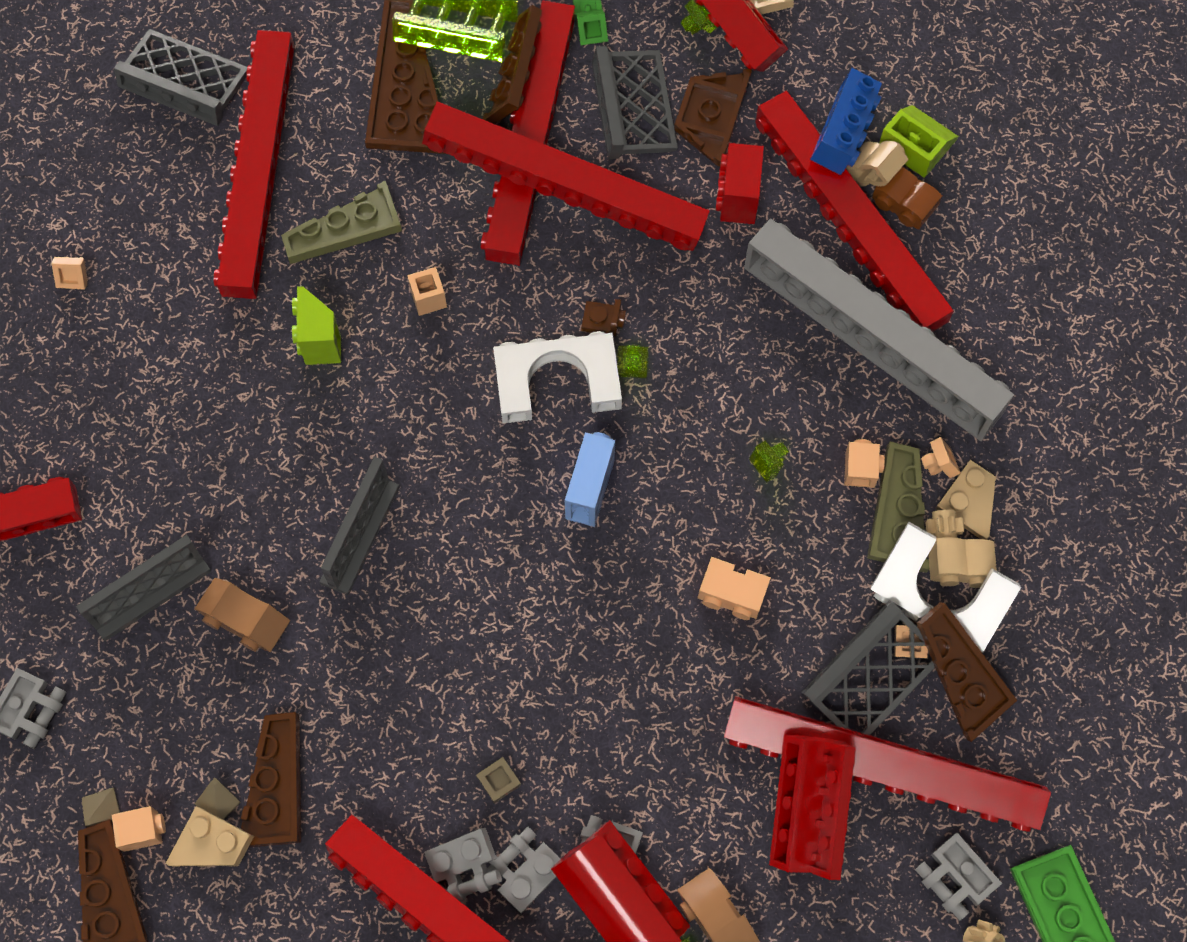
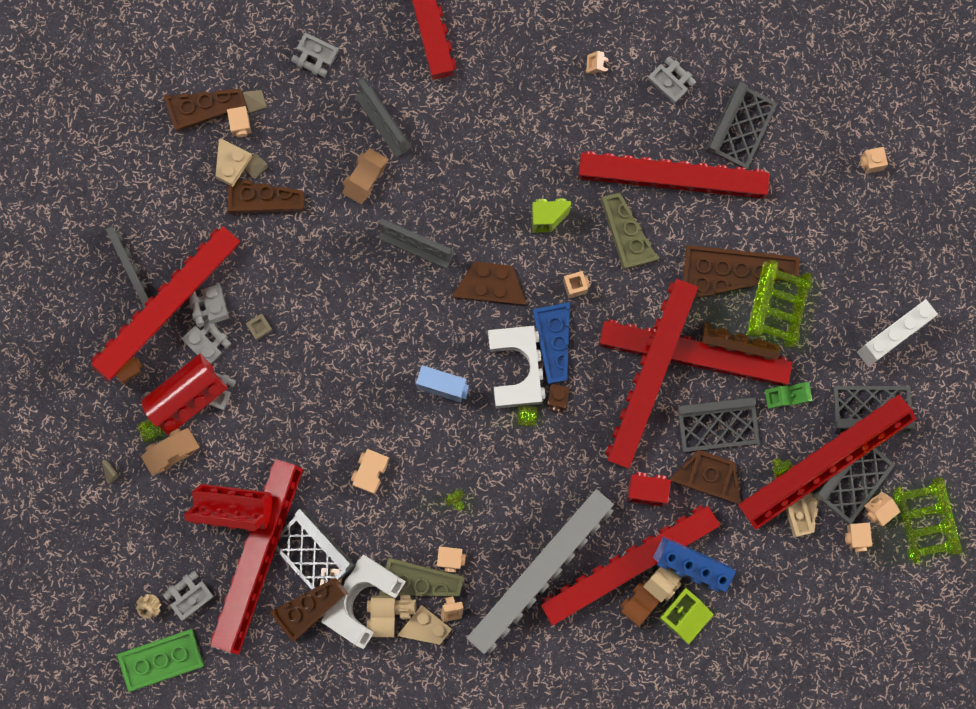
camera: 90 degrees right, 10 degrees up
(108, 173) = (668, 83): none -> light grey plate
(424, 419) = (491, 284): none -> reddish brown wing
(490, 324) = (553, 331): none -> blue wing

